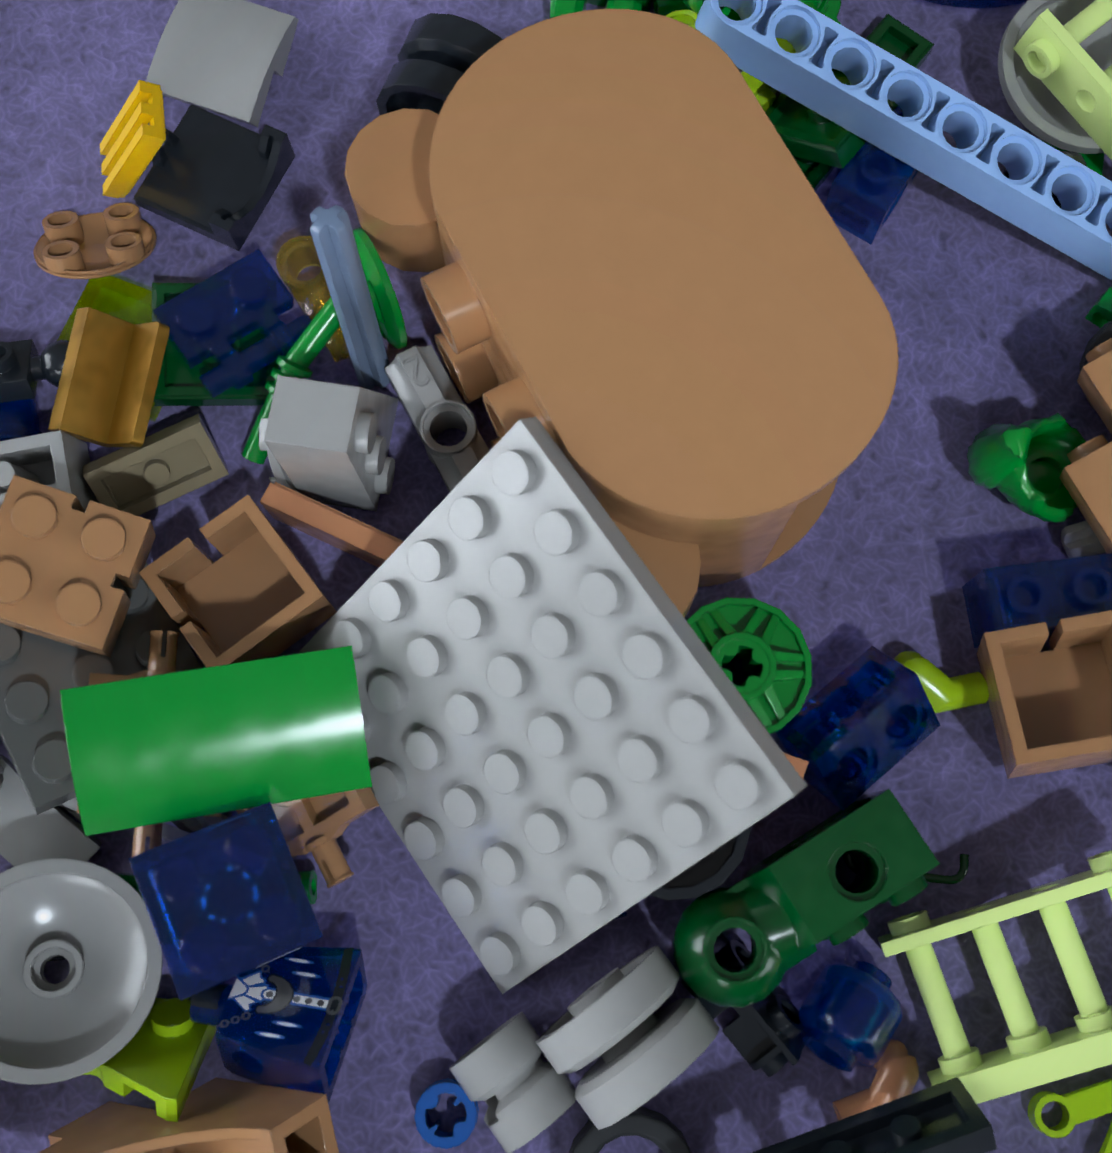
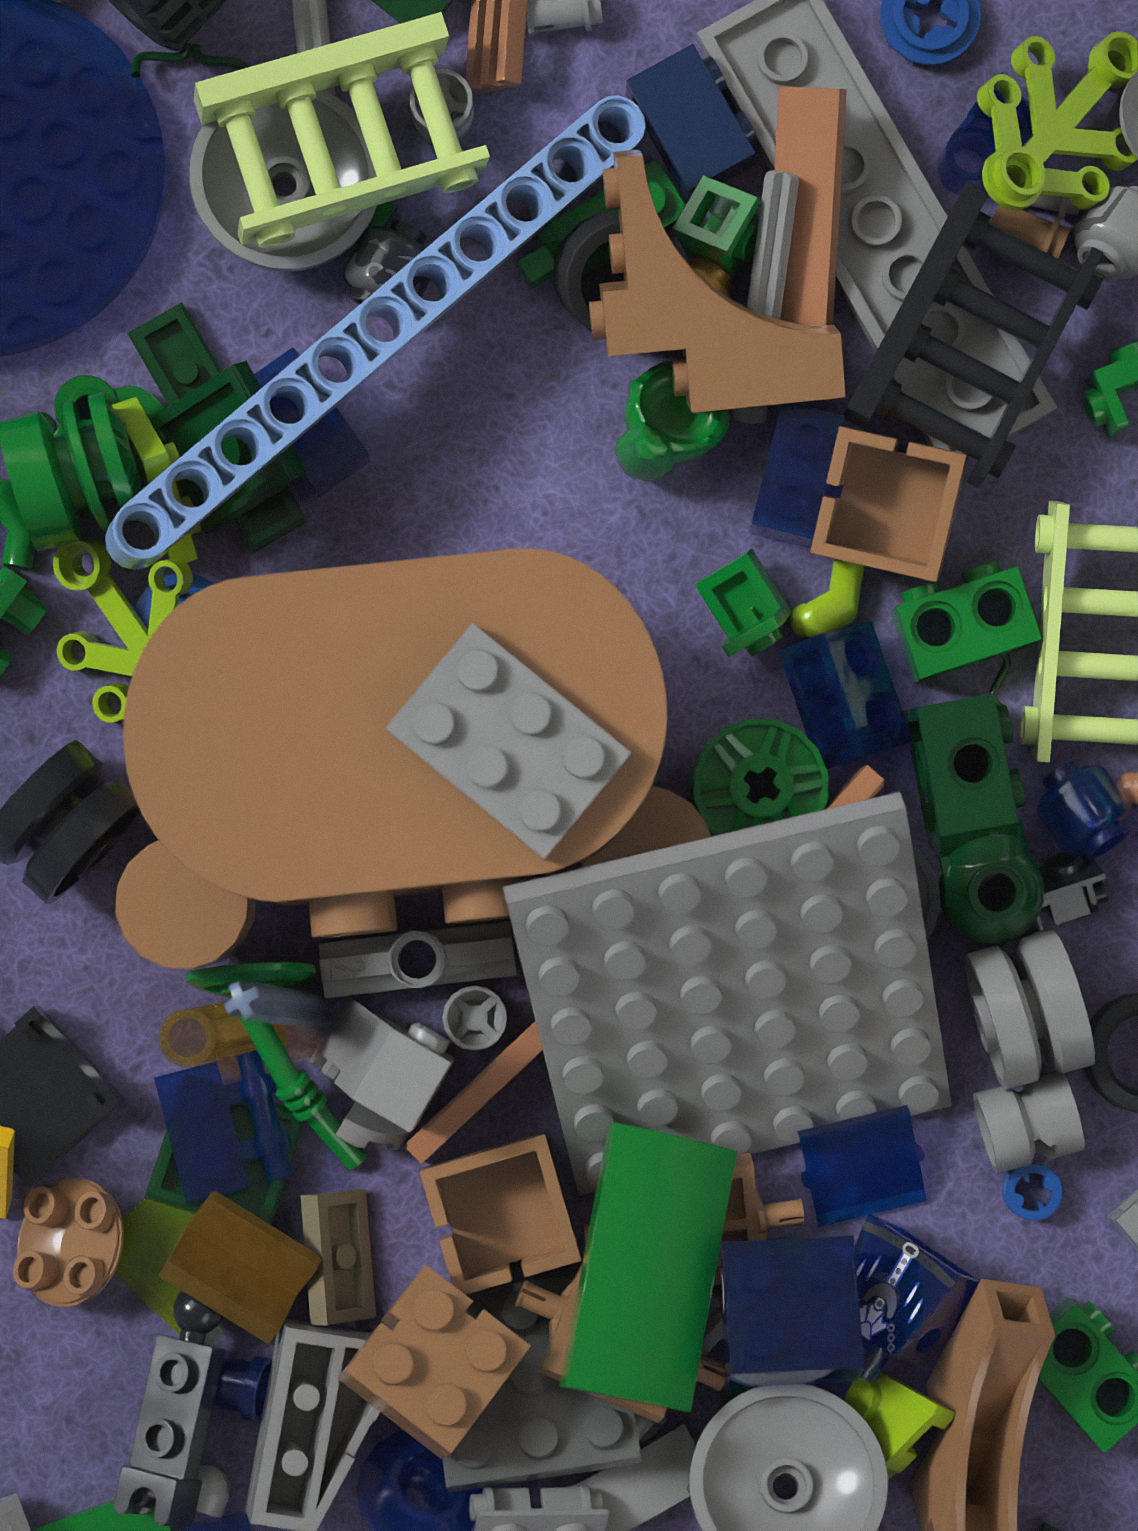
camera: 75 degrees left, 10 degrees up
(409, 925) = (862, 1165): none -> clear blue piece
(411, 495) = (467, 1018): none -> light grey wheel
(685, 359) = (508, 741): none -> light grey plate
(900, 601) = (745, 604): none -> green bracket
(968, 832) = (969, 636): none -> green brick

